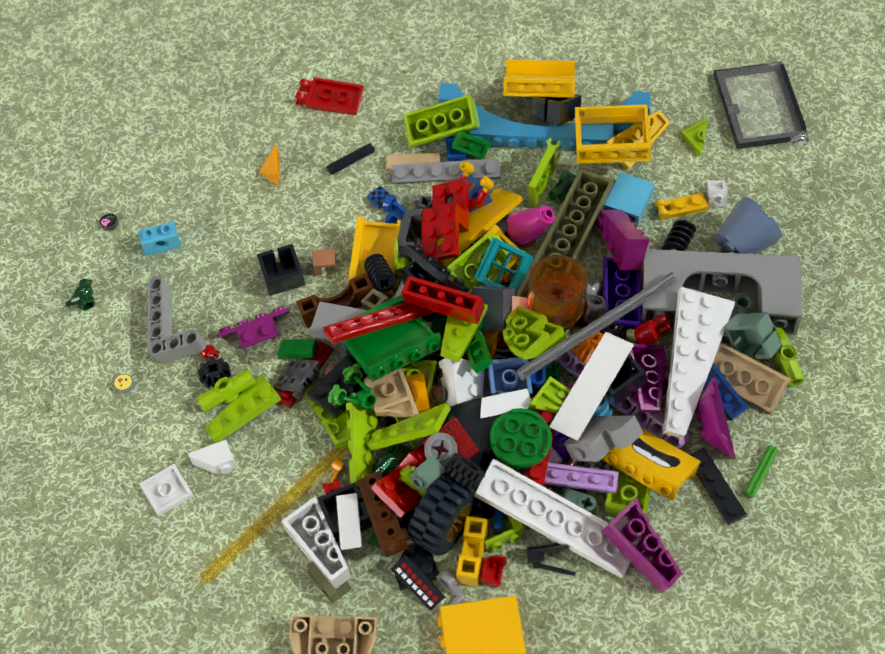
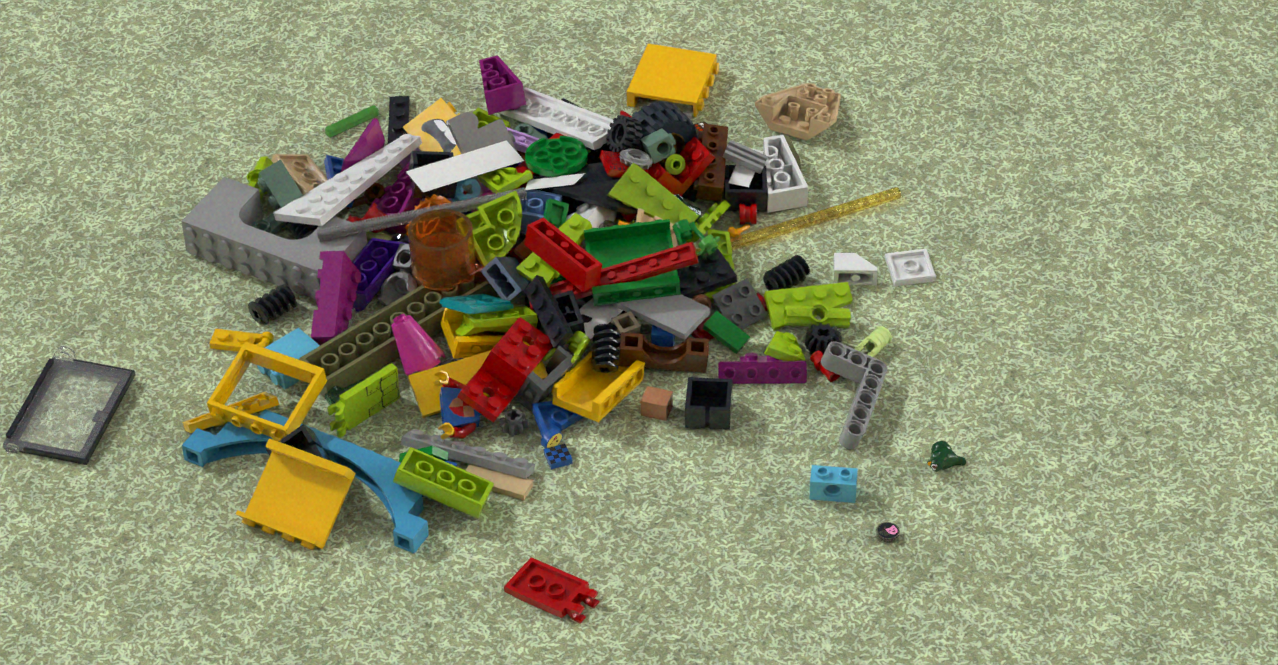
camera: 160 degrees left, 15 degrees down
(123, 383) = (923, 366): tile -> none
(171, 386) = (875, 341): none -> yellowish green hinge
(241, 345) = (784, 347): none -> lime wing
(269, 425) = (786, 274): none -> black piece
(271, 166) = (665, 526): light orange slope -> none
(350, 158) = (567, 508): black axle -> none
(365, 510) = (745, 156): none -> light grey tile
(695, 135) = (164, 405): lime tile -> none
(717, 193) = (194, 337): white bracket -> none
(747, 229) = (206, 273): sand blue cone -> none

